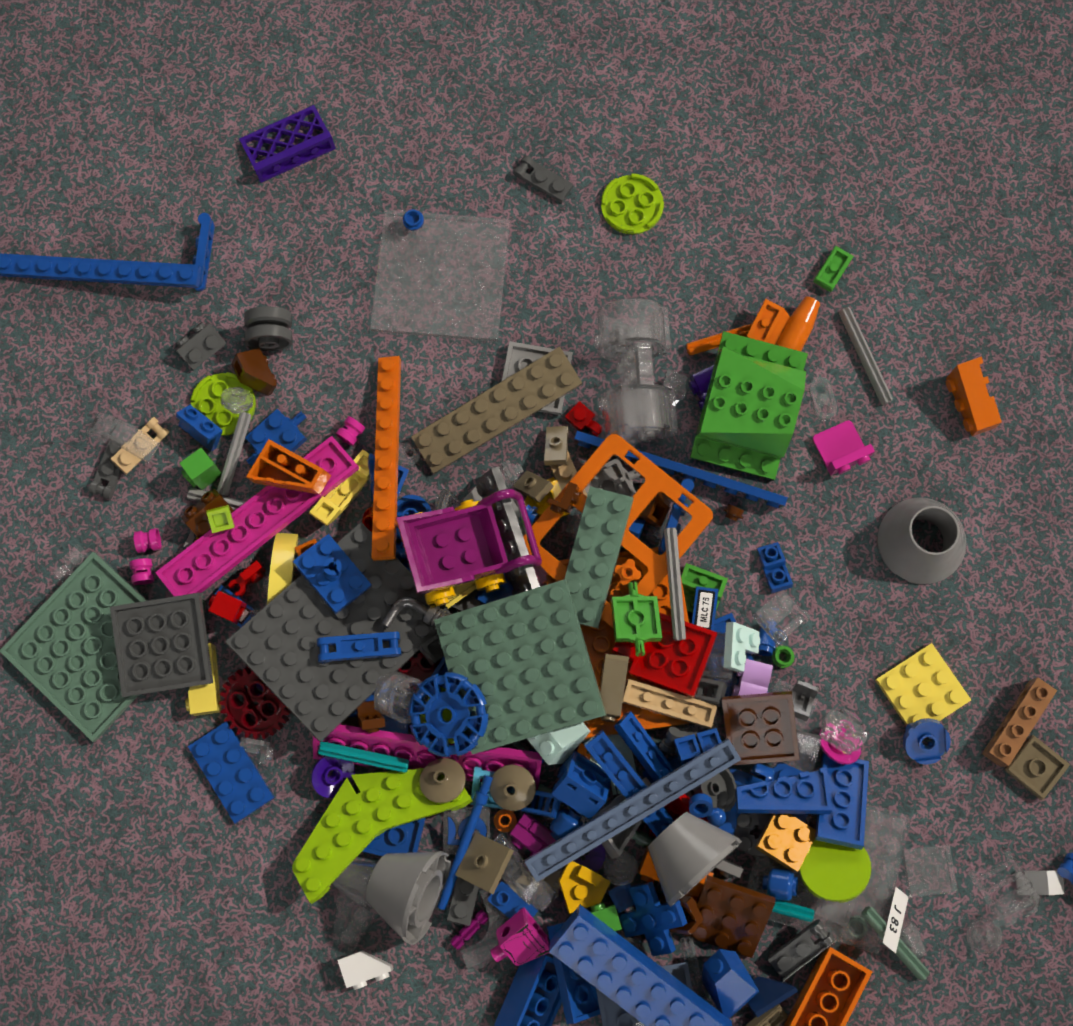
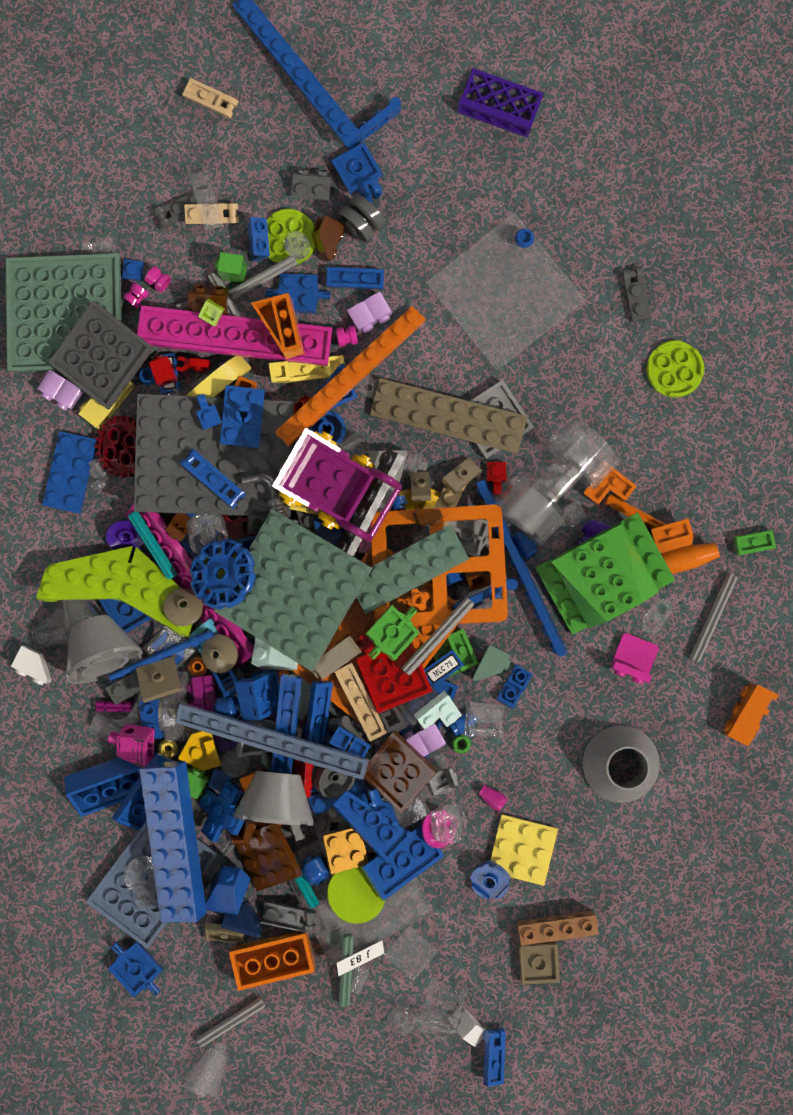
camera: 45 degrees right, 10 degrees up
(47, 360) = (209, 98): none -> tan plate
(119, 555) = (133, 270): none -> blue plate
(155, 711) = (60, 390): none -> lavender brick
(222, 630) = (143, 376): none -> blue plate
(228, 298) = (359, 172): none -> blue plate
(301, 600) = (207, 415): none -> blue plate
(310, 381) = (355, 278): none -> blue plate
(350, 395) = (370, 312): none -> lavender brick
(551, 908) = (169, 754): none -> light yellow plate
(666, 448) = (525, 545): none -> blue cone
(682, 331) = (612, 482): none -> orange plate
(702, 806) = (313, 780): blue plate -> none
(733, 512) = (525, 628): reddish brown plate -> none
(737, 566) = (491, 663): none -> sand green slope
(856, 672) = (493, 798): none -> dark pink cone

